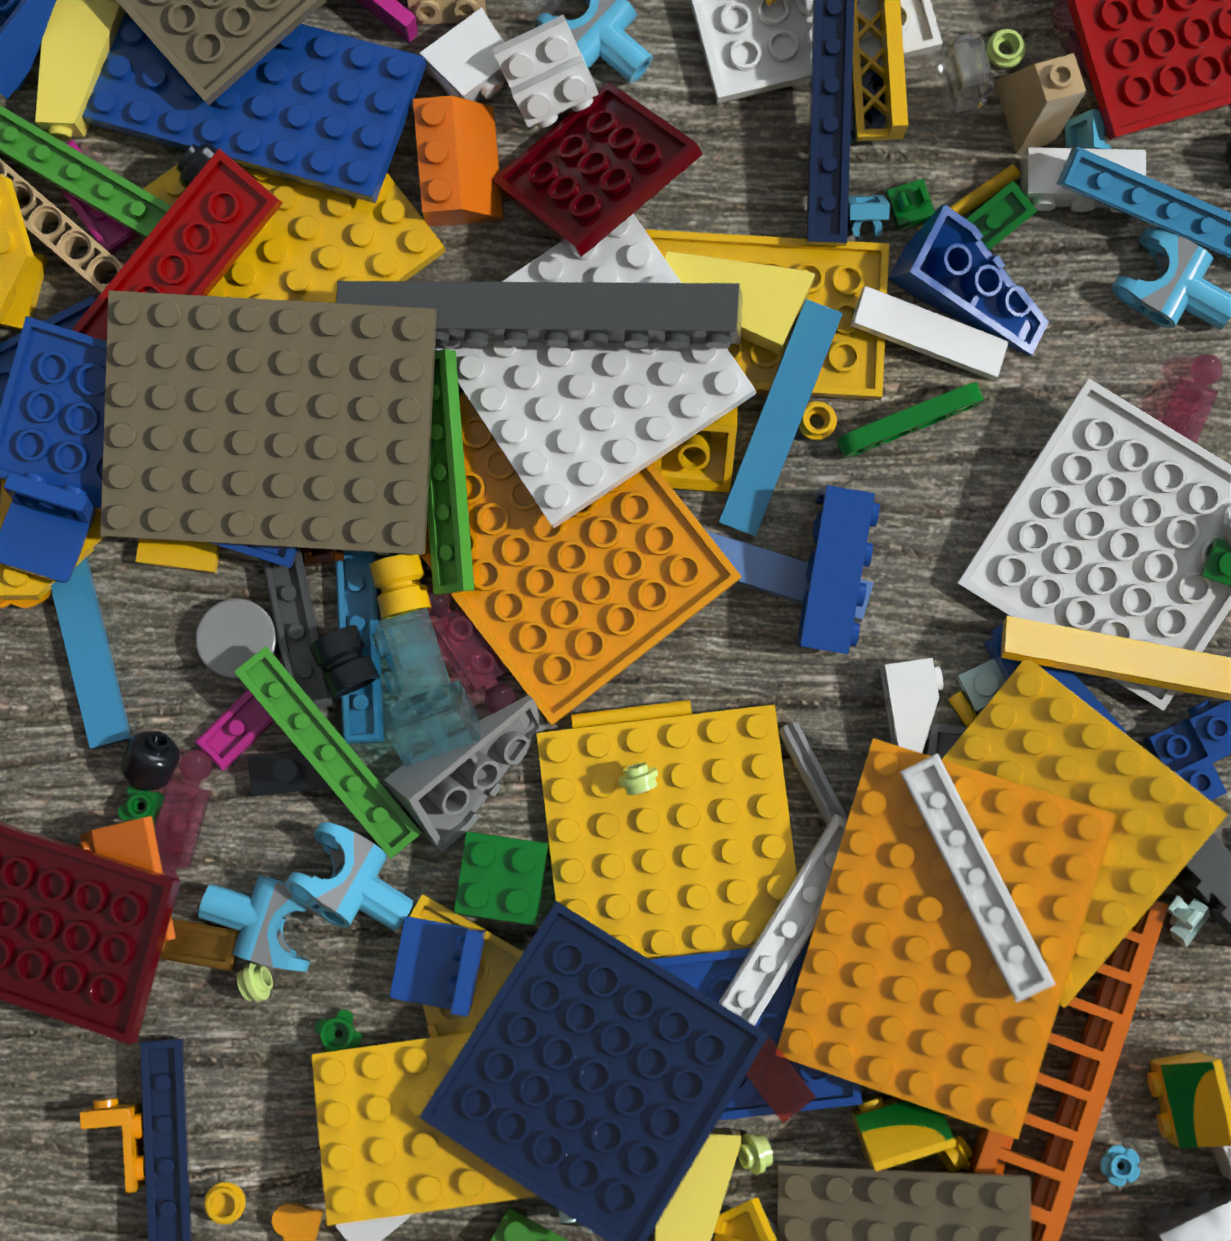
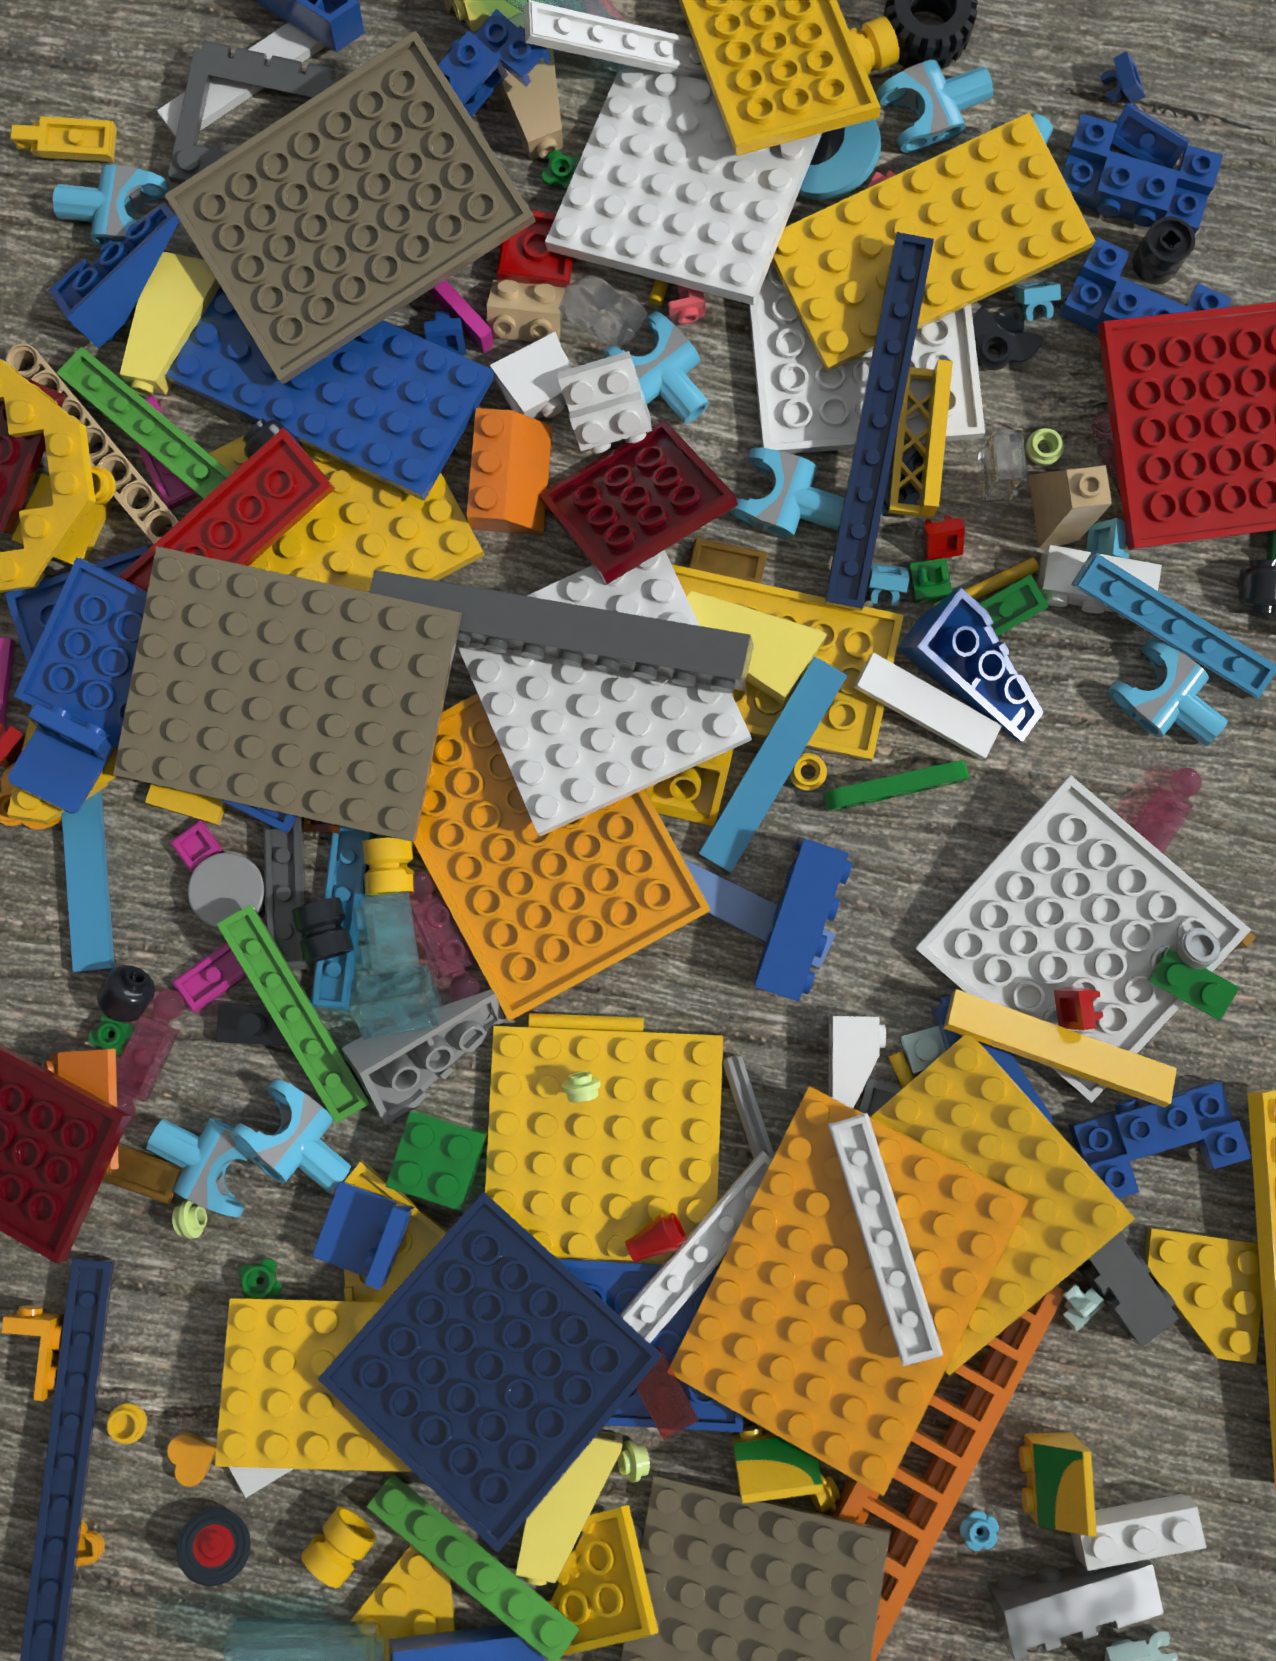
camera: 10 degrees right, 0 degrees up
(39, 238) = (103, 484): none -> yellow plate
(196, 597) = (196, 845): none -> dark pink tile
(368, 25) = (446, 332): none -> blue tile
(447, 485) = (446, 777): bright green plate -> none
(698, 215) = (728, 560): none -> pearl gold tile
(741, 920) = (658, 1237): none -> red cone
(753, 140) = (791, 496): none -> medium azure connector
(917, 158) = (943, 538): none -> red tile
(1132, 615) = (1076, 1008): none -> red tile

